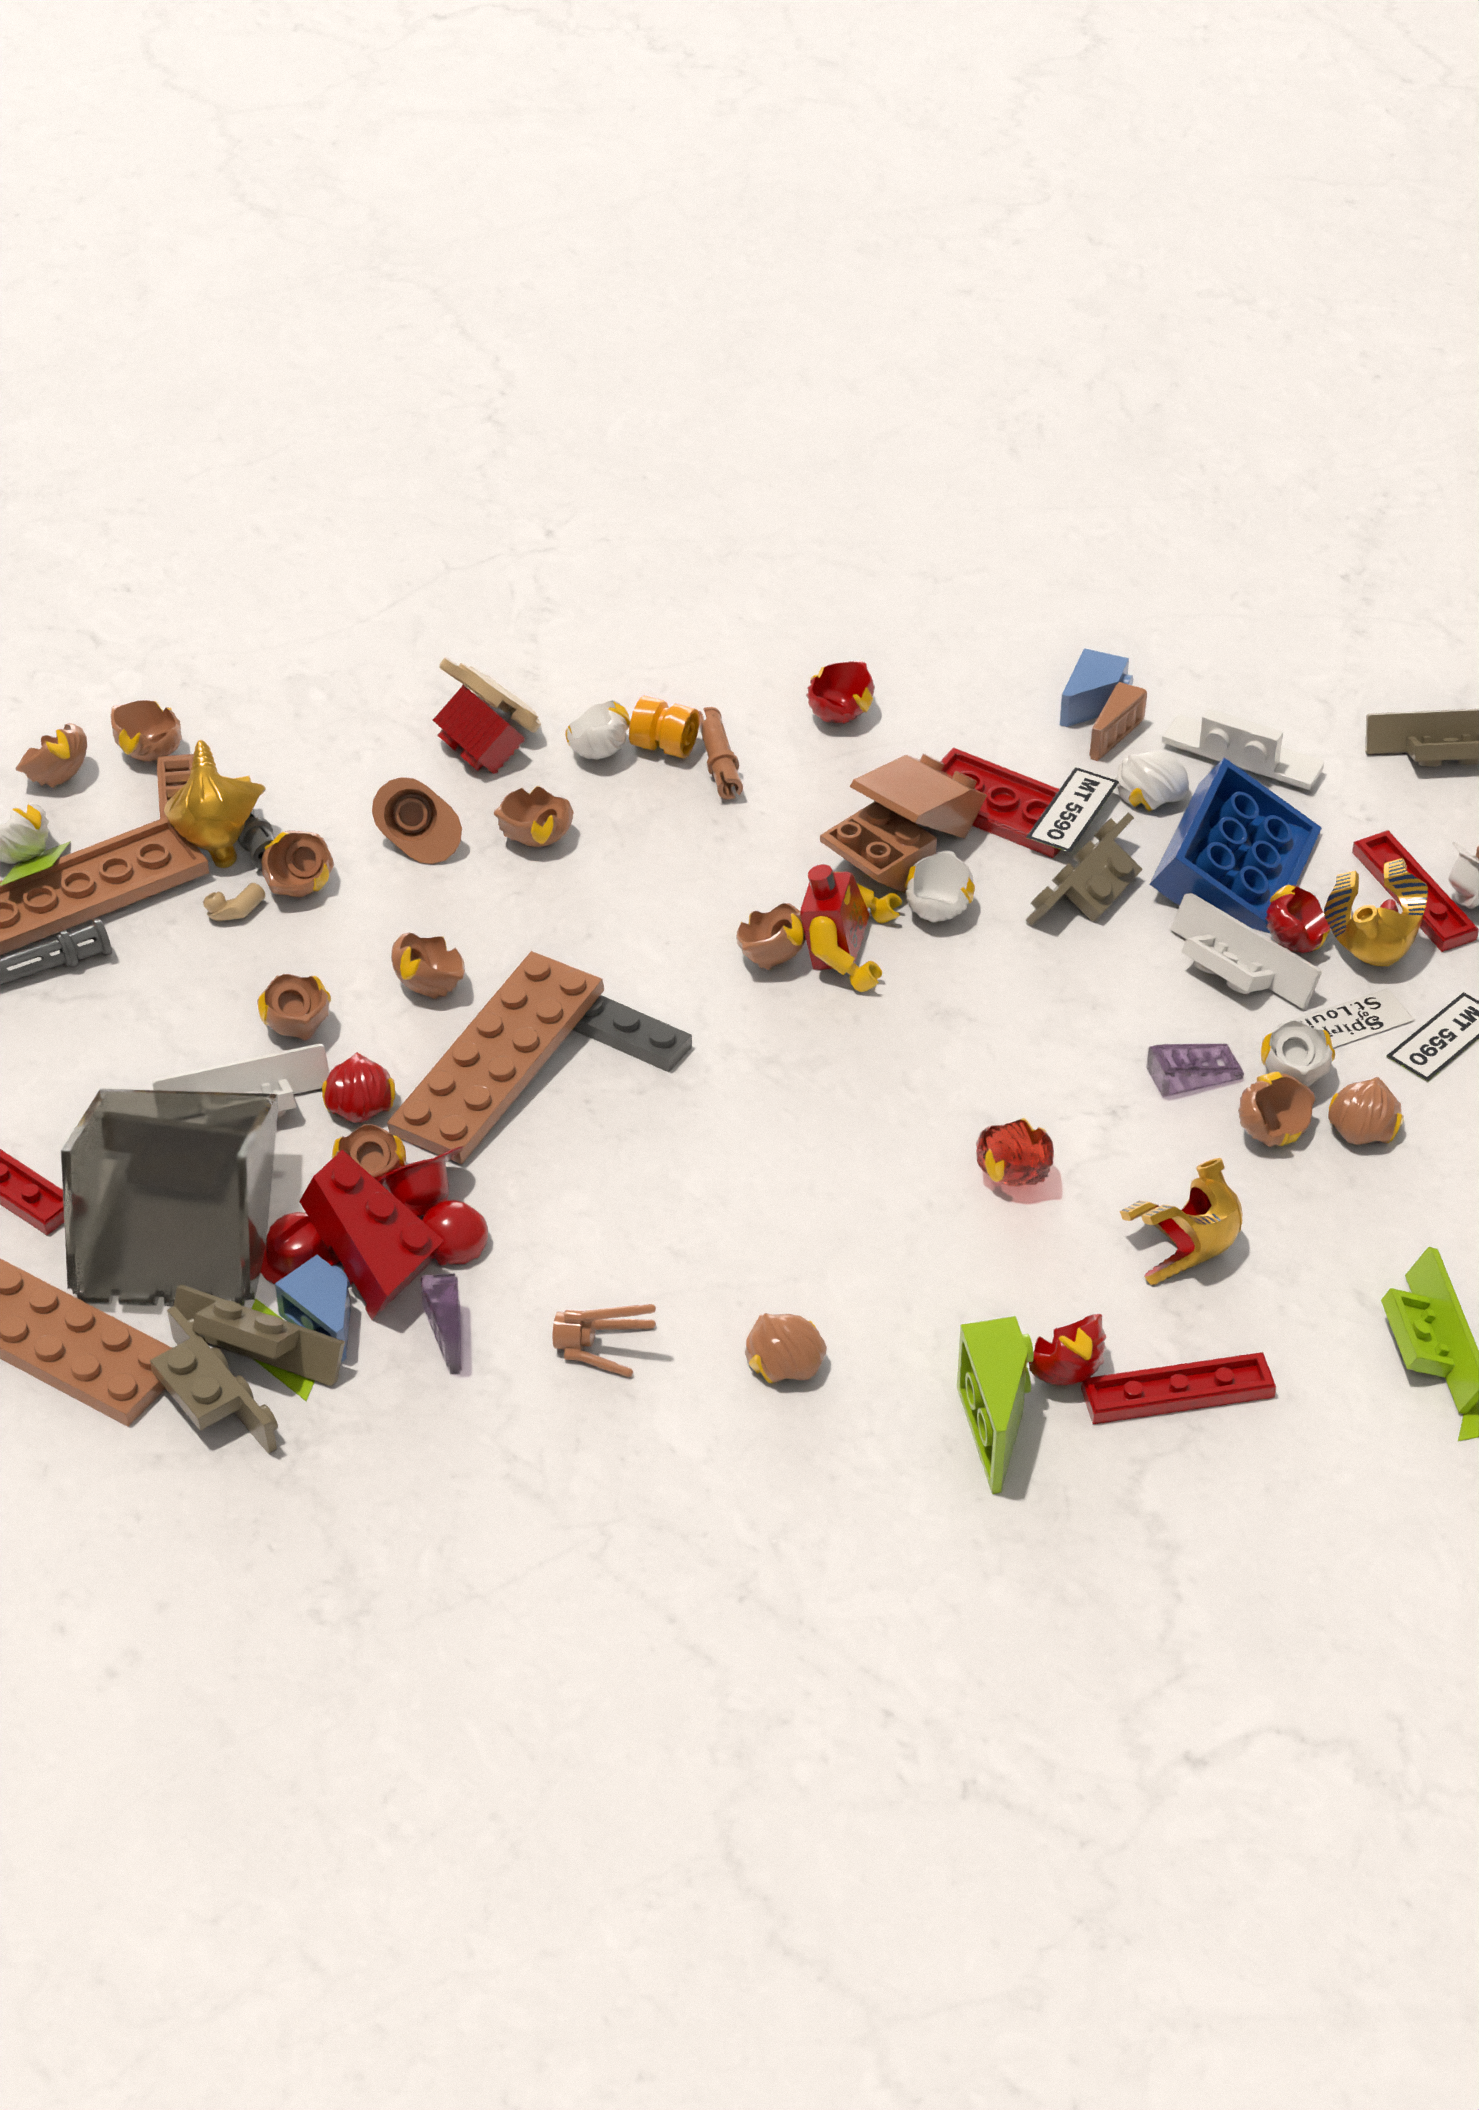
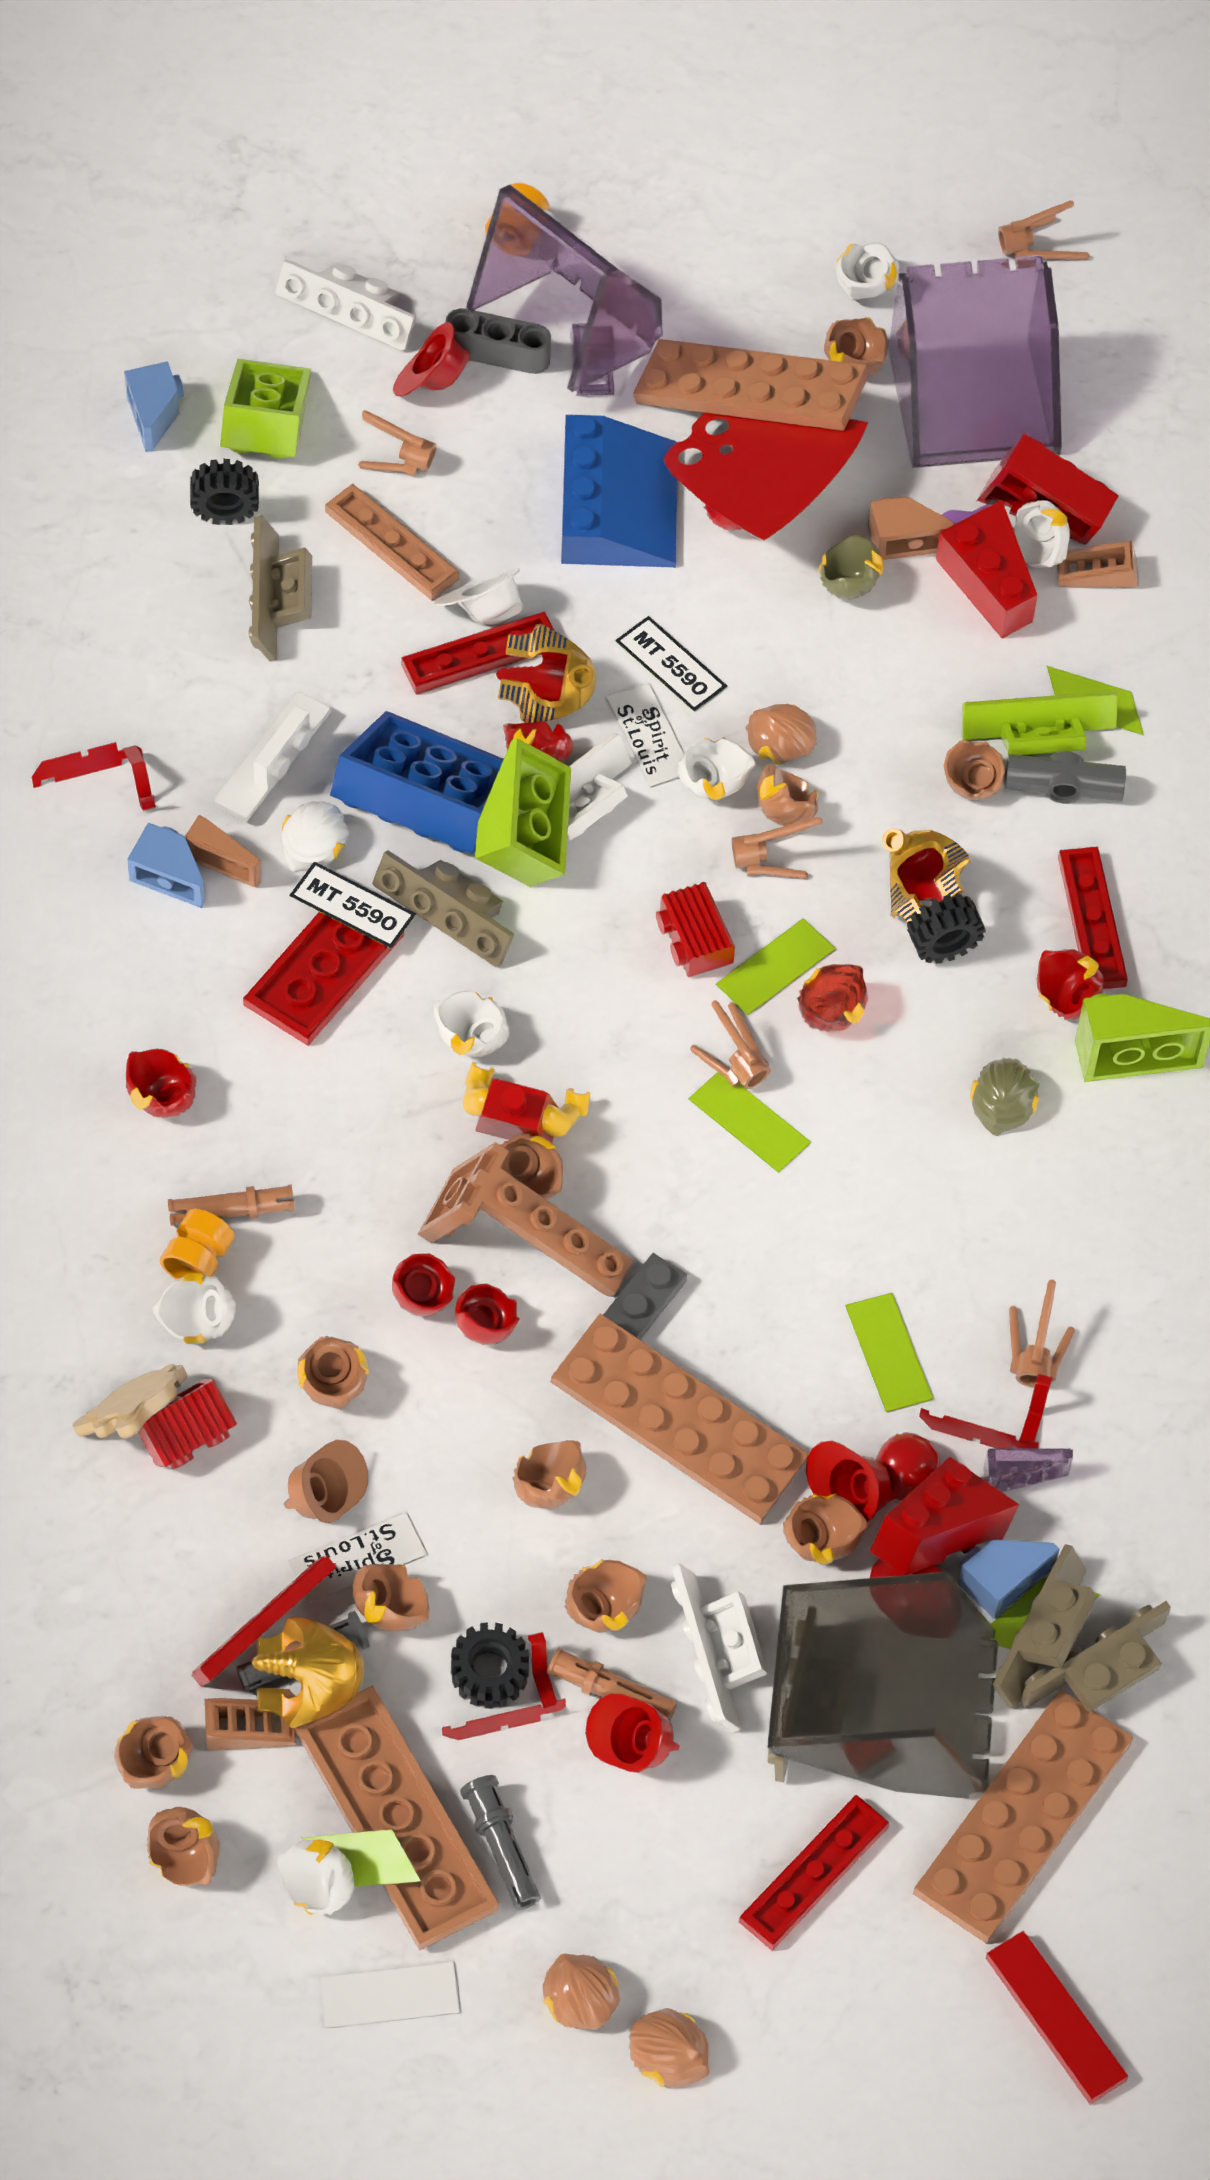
camera: 90 degrees left, 15 degrees up
(141, 1038) = (629, 1733): none -> red piece
(200, 987) = (521, 1716): none -> red piece
(211, 1011) = (597, 1680): none -> nougat pin
(234, 955) = (490, 1641): none -> black tyre
(236, 908) = (432, 1664): tan arm -> none
(280, 792) = (263, 1620): none -> red tile
(356, 863) = (386, 1542): none -> white sticker
(358, 1089) = (717, 1543): red hair -> none
(501, 1338) = (992, 1437): none -> red piece
(594, 1226) = (889, 1352): none -> lime sticker
(606, 914) = (486, 1314): none -> red hair
(635, 870) = (423, 1284): none -> red hair
(714, 887) = (485, 1186): none -> nougat bracket
(784, 1347) = (1055, 1202): nougat hair -> none
(867, 1113) = (750, 1121): none -> lime sticker
(881, 844) = (410, 1066): nougat slope -> none
(919, 1304) = (1004, 1095): none -> olive hair
(924, 793) = (358, 1017): nougat slope -> none
(928, 1094) = (747, 1062): none -> nougat plant
(1067, 1128) = (775, 966): none -> lime sticker
(1089, 1052) = (695, 929): none -> red brick
(1119, 1236) = (946, 928): none -> black tyre
(1180, 1067) = (716, 879): clear purple slope -> none
(1191, 894) = (526, 816): none -> lime slope
(1205, 1095) = (751, 849): none -> nougat plant
(1208, 643) = (98, 759): none -> red piece
(1349, 1265) = (974, 770): none -> nougat hair
(1365, 1354) = (1065, 777): none -> dark grey piece

